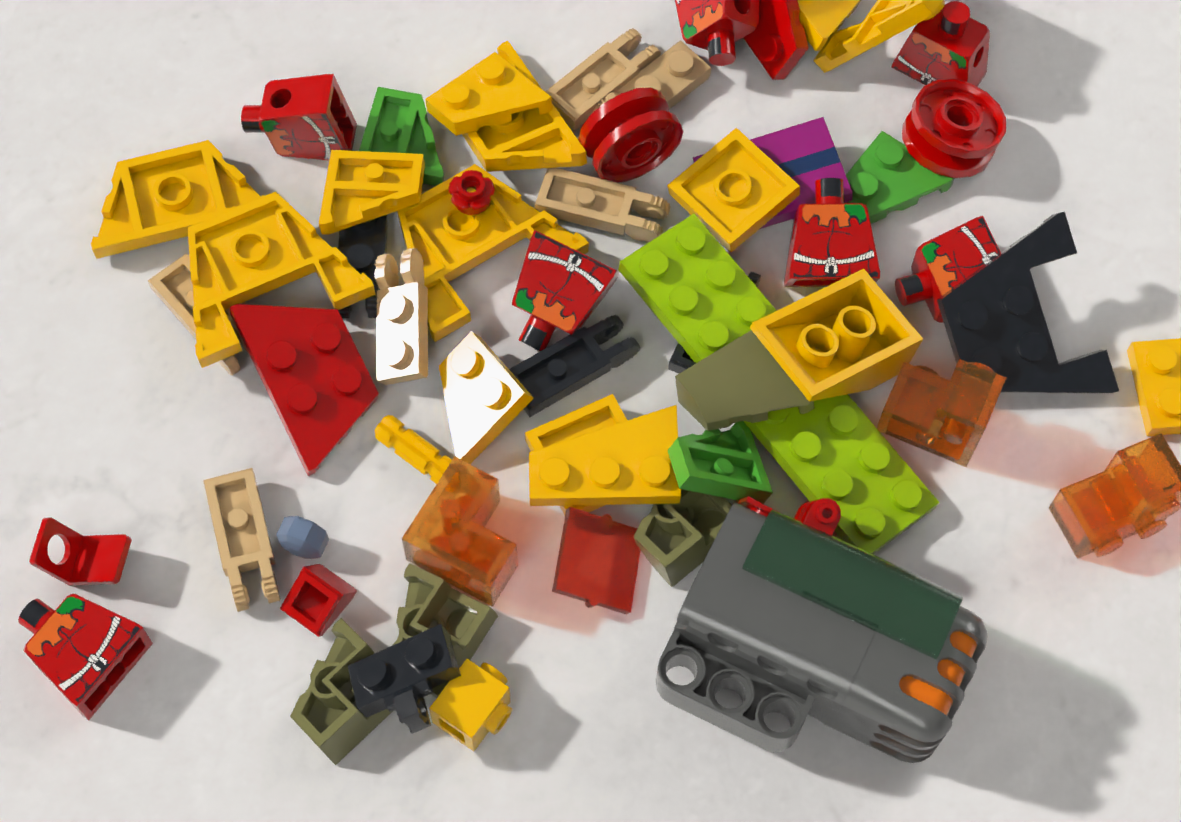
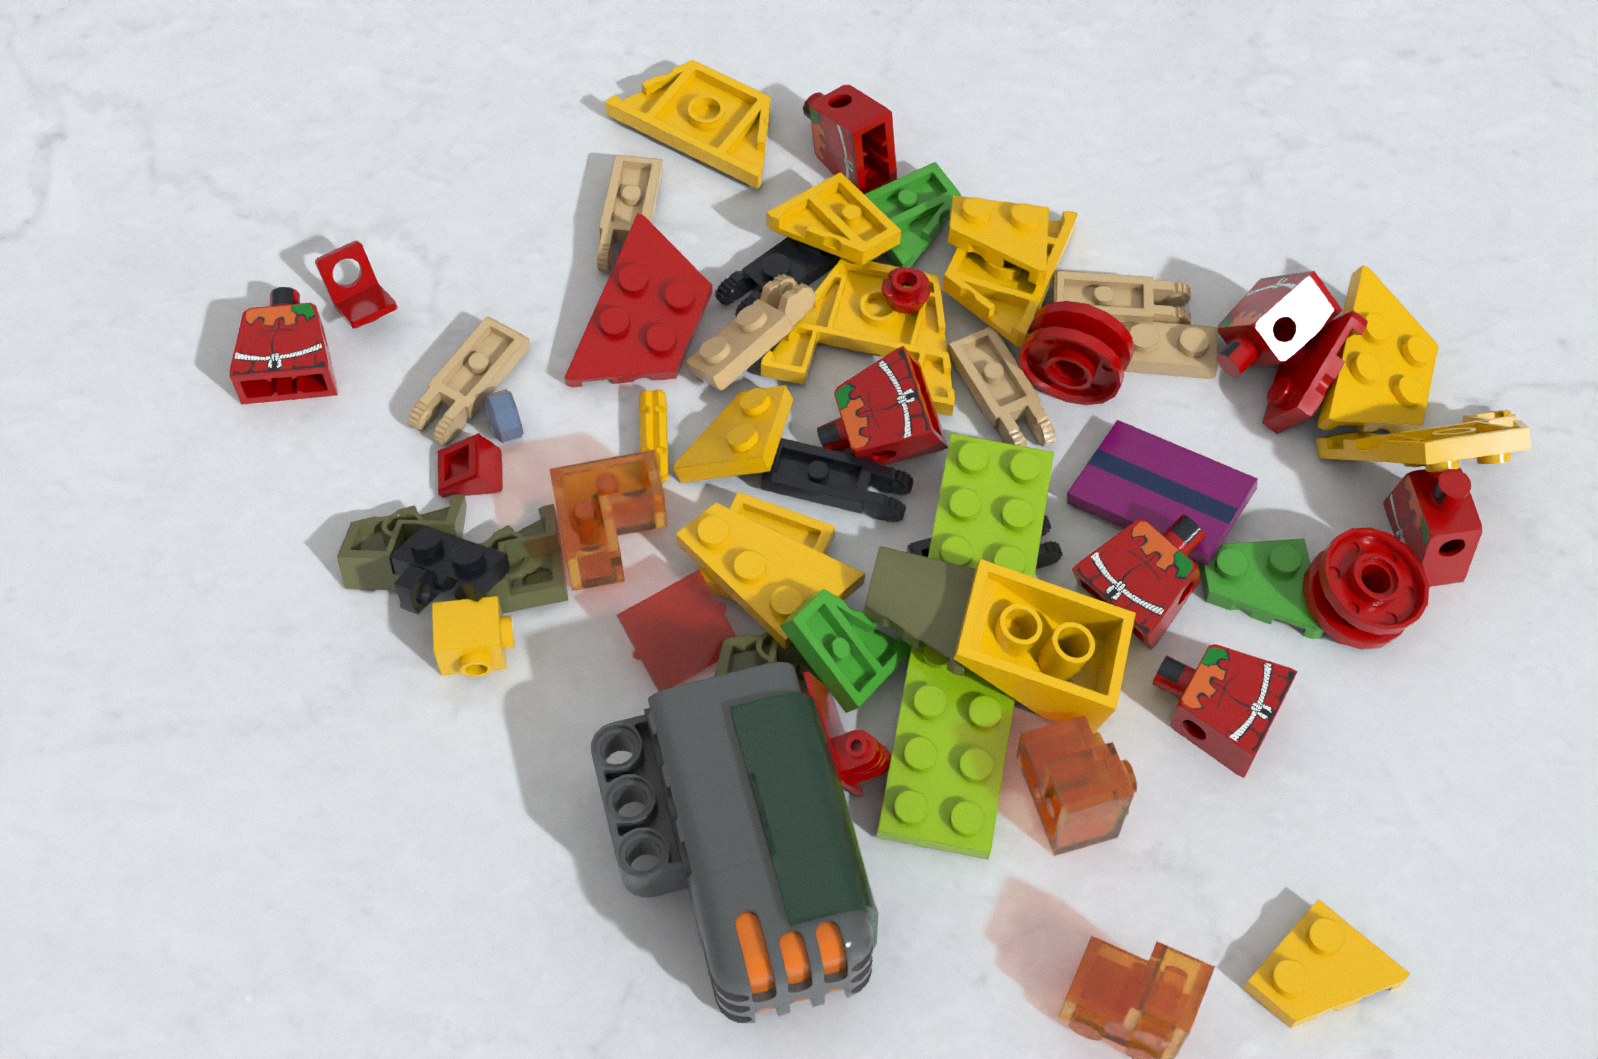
camera: 50 degrees right, 5 degrees down
(254, 253) = (695, 194): yellow wing -> none
(734, 189) = (1111, 466): yellow plate -> none
(1001, 324) = (1203, 772): black wing -> none

